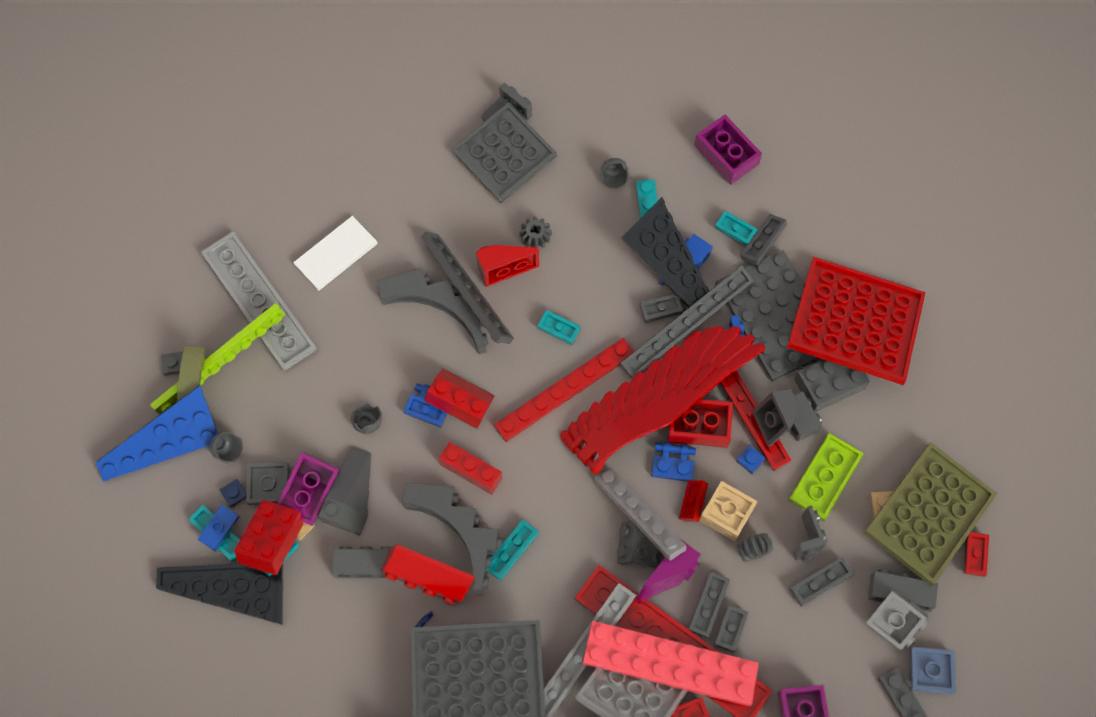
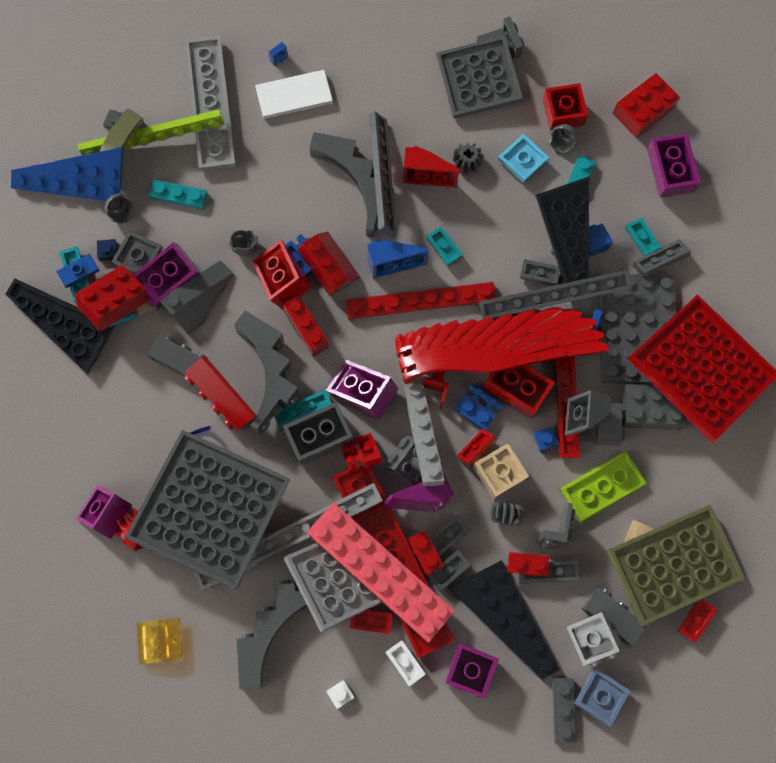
camera: 25 degrees right, 5 degrees up
(274, 404) = (178, 194): none -> teal plate
(300, 222) = (278, 54): none -> blue plate
(420, 431) = (280, 274): none -> red slope
(517, 361) = (393, 257): none -> blue slope
(539, 564) = (318, 433): none -> dark grey brick
(557, 500) = (363, 389): none -> magenta slope
(587, 209) = (523, 158): none -> medium azure plate
(594, 556) = (367, 452): none -> red plate
(599, 142) = (565, 106): none -> red brick
(623, 460) = (436, 383): none -> red bracket
(672, 105) = (646, 105): none -> red brick
(701, 623) = (425, 552): none -> red plate
(799, 639) = (501, 608): none -> black wing
(800, 583) = (528, 564): none -> red plate

